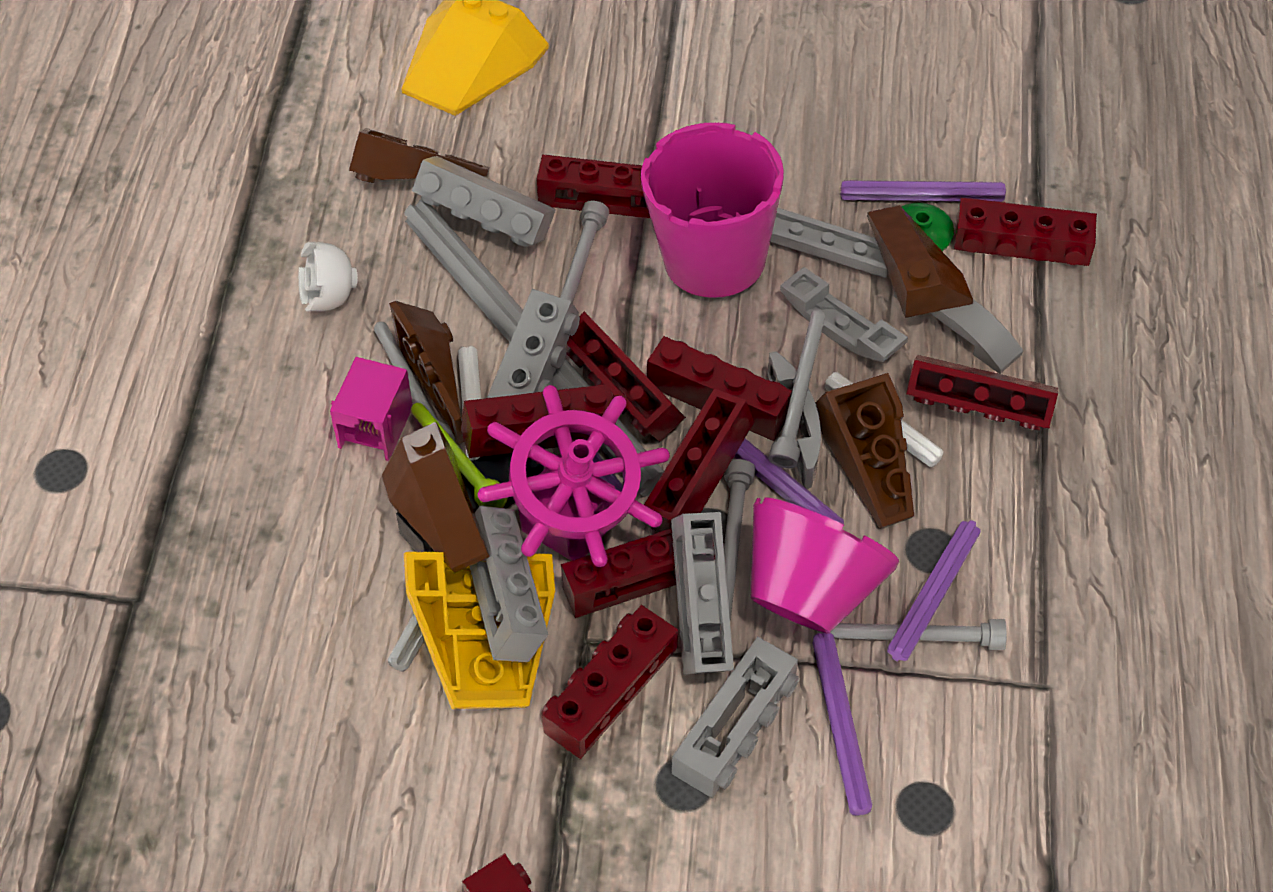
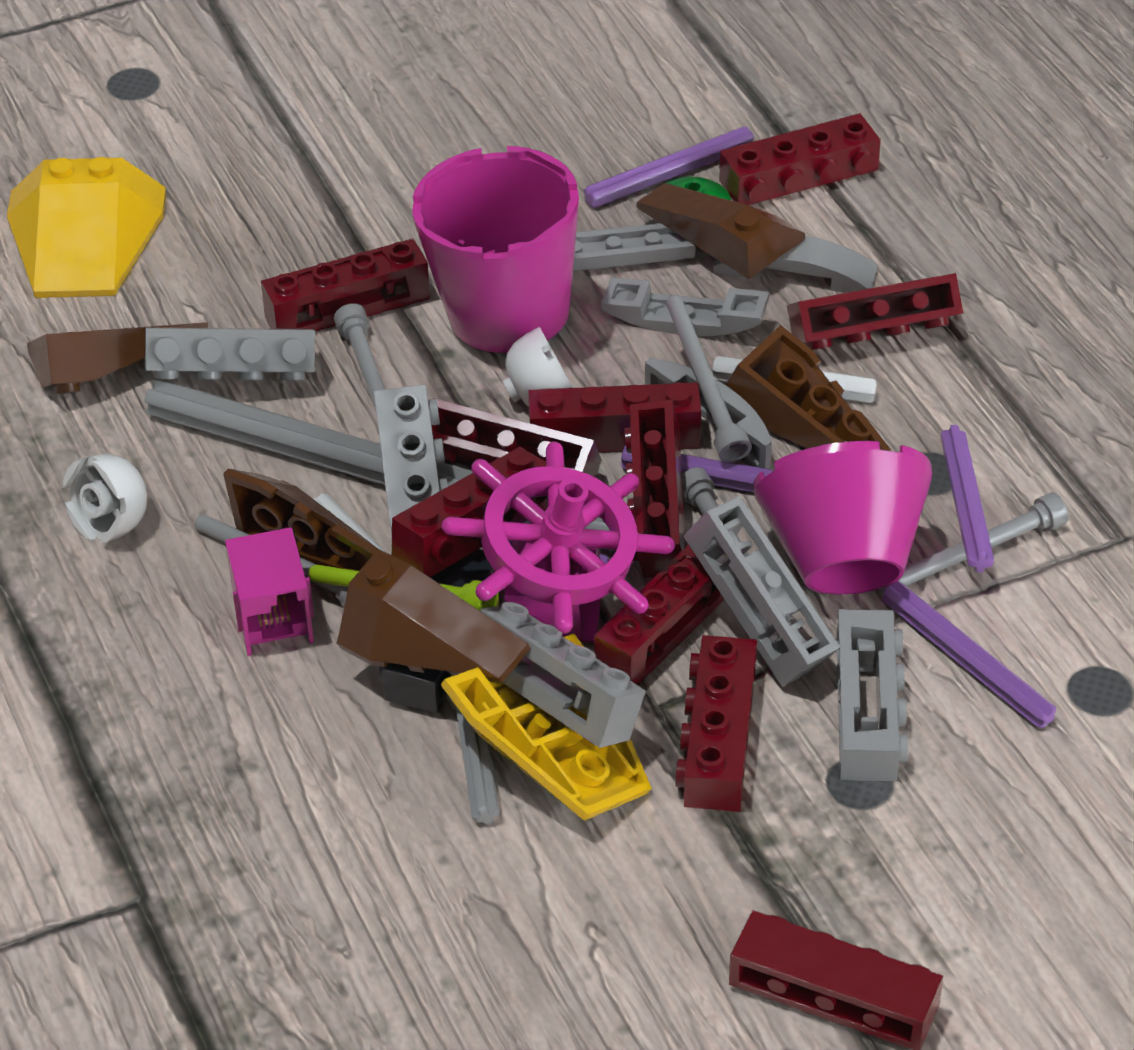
camera: 30 degrees left, 10 degrees down
(691, 320) = (532, 367): none -> white cylinder

